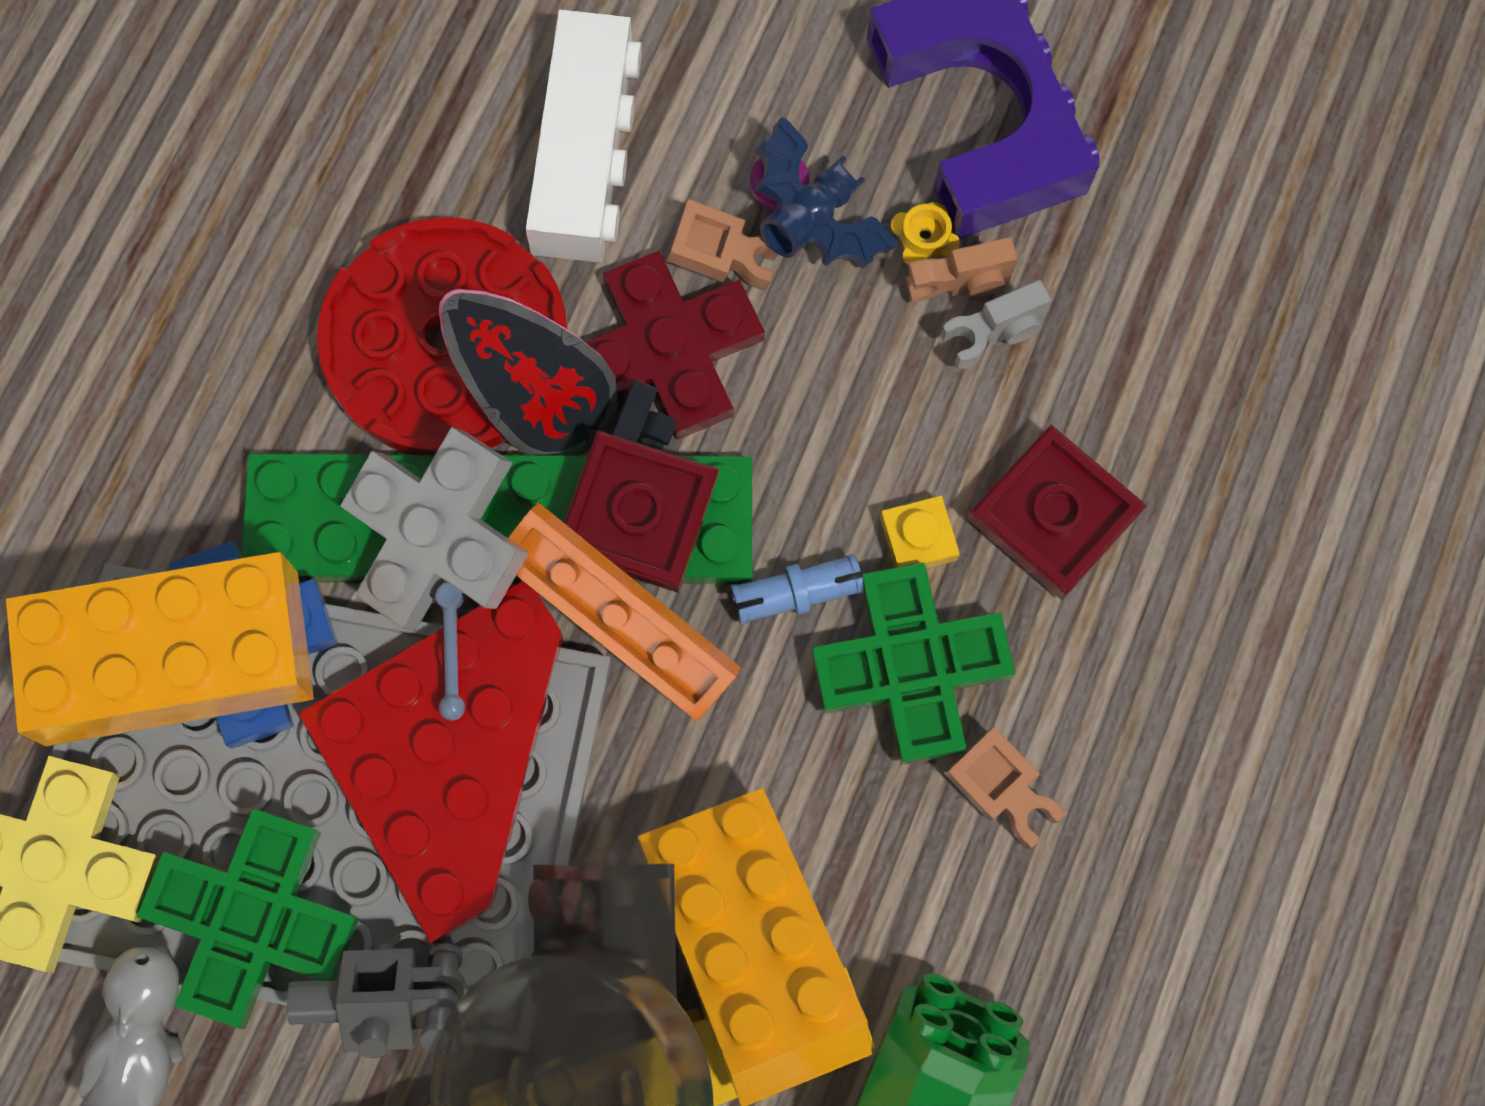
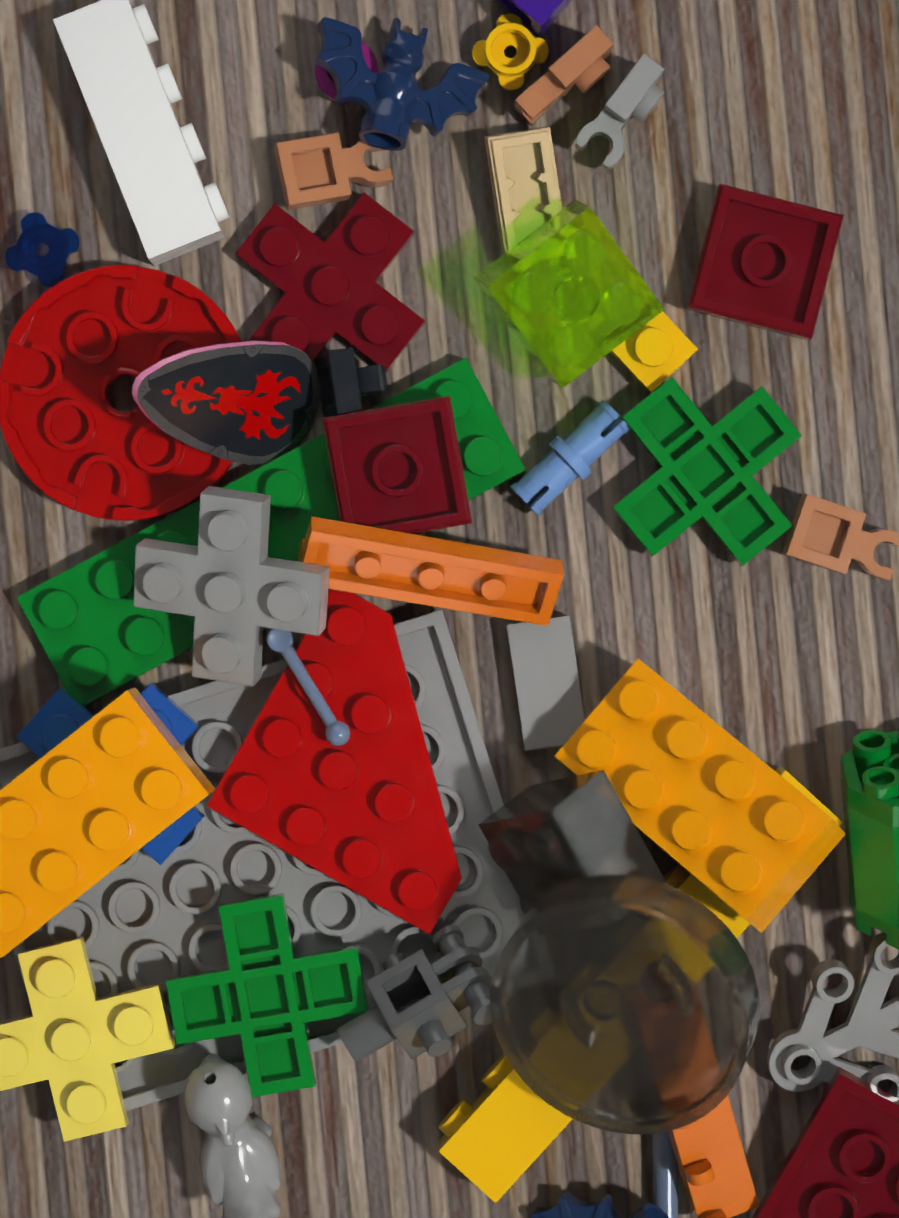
camera: 25 degrees left, 15 degrees up
(447, 173) = (60, 244): none -> clear blue plate
(669, 771) = (546, 682): none -> light grey tile
(871, 441) = (569, 293): none -> clear neon green brick
(877, 350) = (522, 182): none -> tan plate

